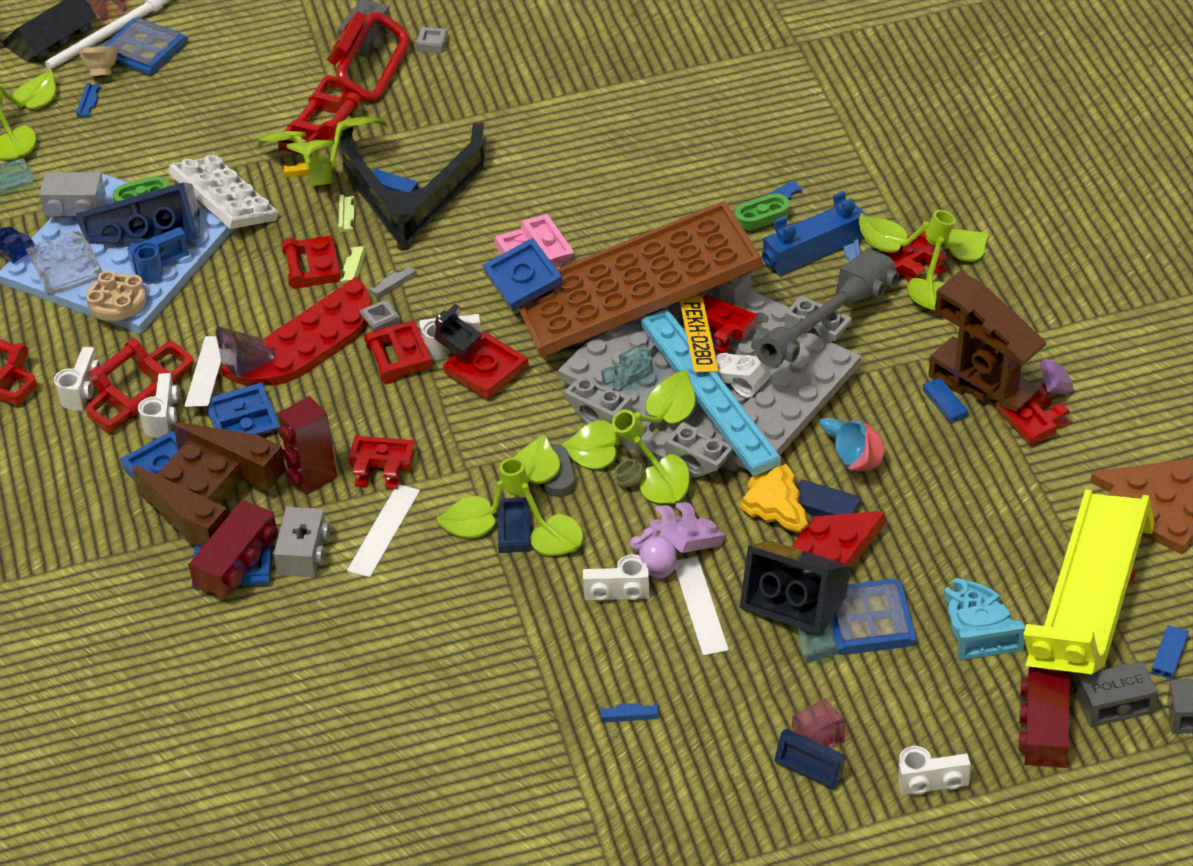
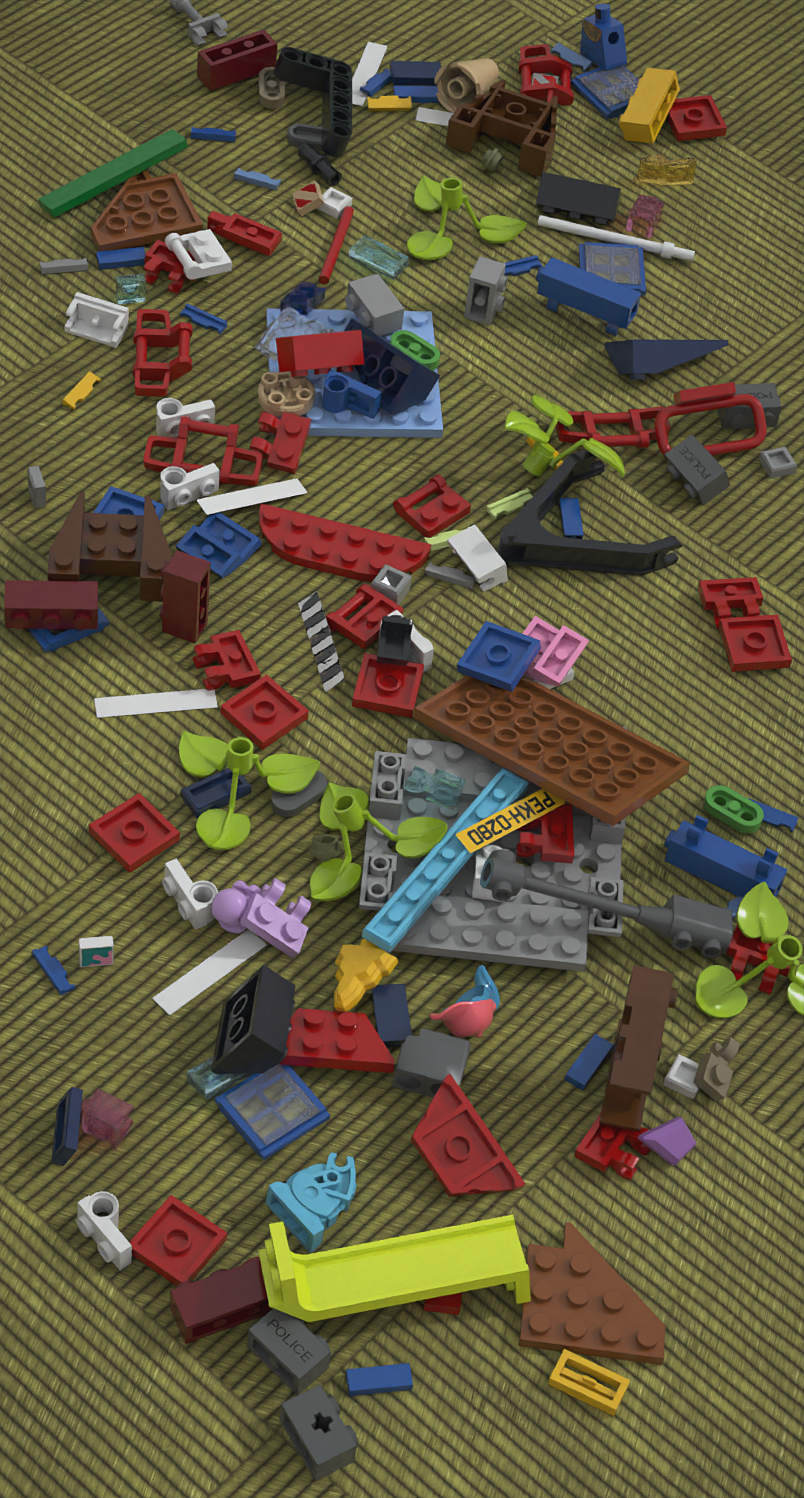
camera: 50 degrees right, 5 degrees up
(76, 512) = (36, 487): none -> light grey tile
(99, 59) = (562, 245): tan piece -> none
(103, 245) = (320, 352): none -> red brick
(112, 122) = (485, 291): none -> light grey brick
(166, 320) = (289, 441): none -> red plate
(173, 62) = (588, 294): none -> blue brick
(224, 192) = (466, 406): white tile -> none
(242, 351) = (275, 504): slope -> none
(267, 58) = (654, 356): none -> dark blue wedge
(301, 542) = (96, 649): light grey brick -> none
(394, 248) = (479, 557): none -> white hinge
(403, 390) = (321, 641): none -> sticker
(410, 83) = (696, 470): none -> dark grey brick
(455, 456) = (264, 712): none -> red plate
(523, 595) = (134, 832): none -> red plate
(549, 121) = (731, 593): none -> red plate
(607, 129) = (755, 643): none -> red plate
(636, 669) = (96, 951): none -> tile
(899, 491) = (428, 1060): none -> dark grey piece
(970, 727) = (177, 1241): none -> red plate
(984, 504) = (462, 1147): none -> red wing

